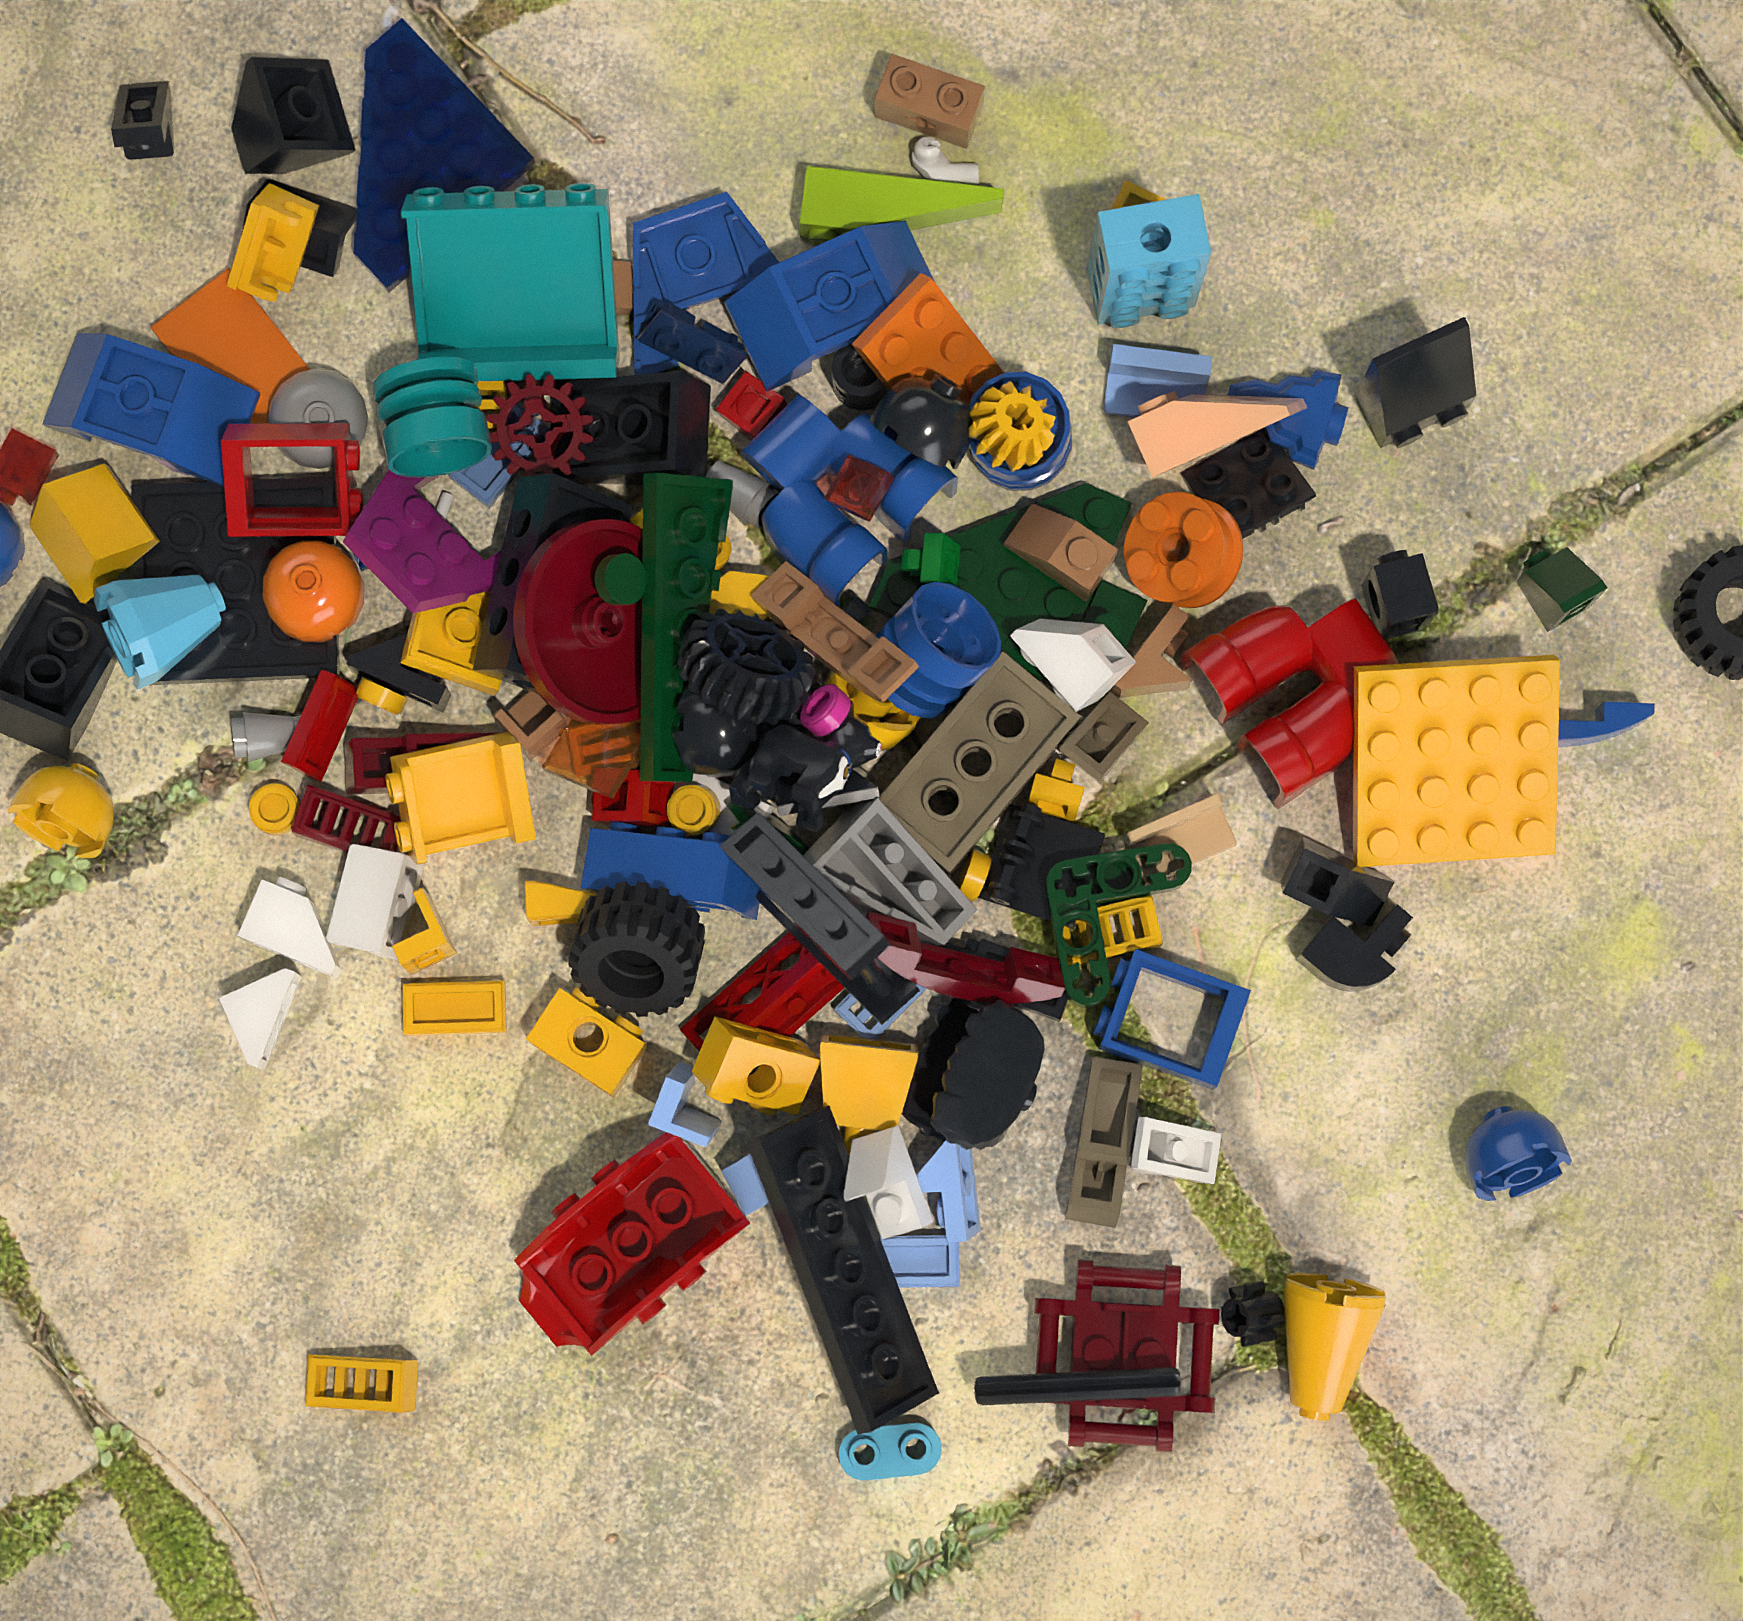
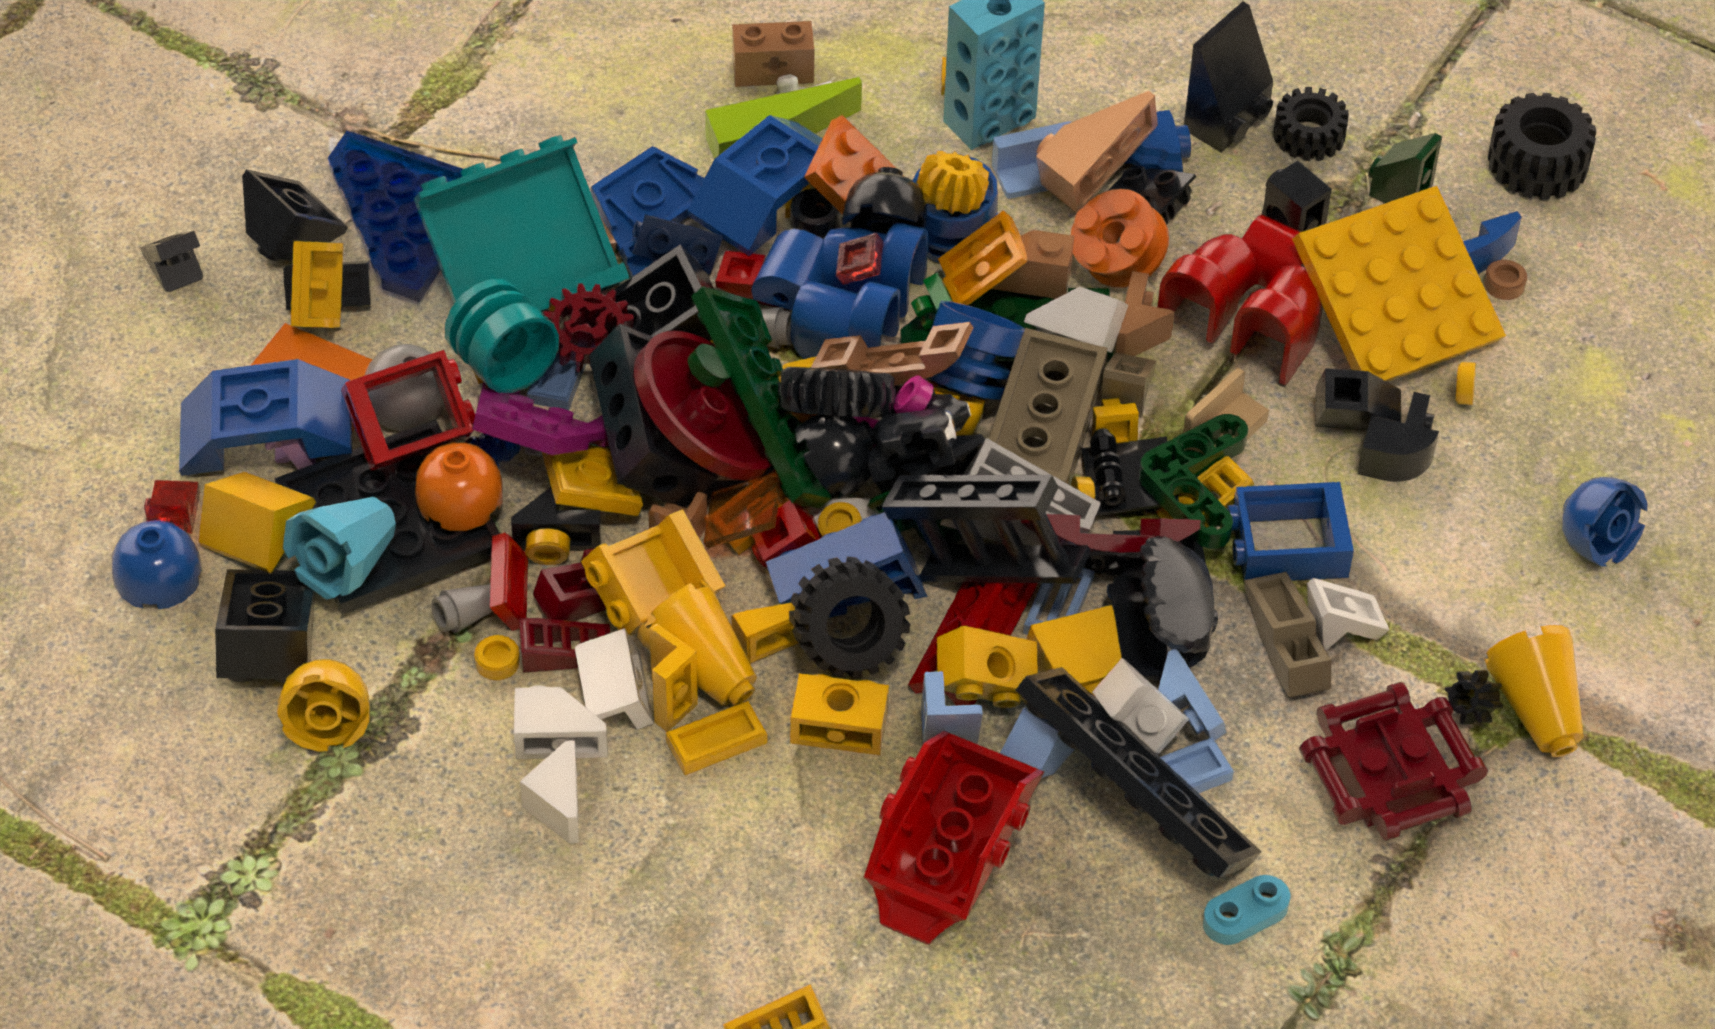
camera: 25 degrees left, 30 degrees down
(479, 904) = (702, 624): none -> yellow cone
(1010, 527) = (983, 259): none -> light orange slope
(1077, 1386) = (1371, 779): black axle -> none
(1472, 902) = (1465, 383): none -> yellow tile
(1505, 431) = (1315, 108): none -> black tyre
(1602, 771) = (1505, 279): none -> medium nougat tile

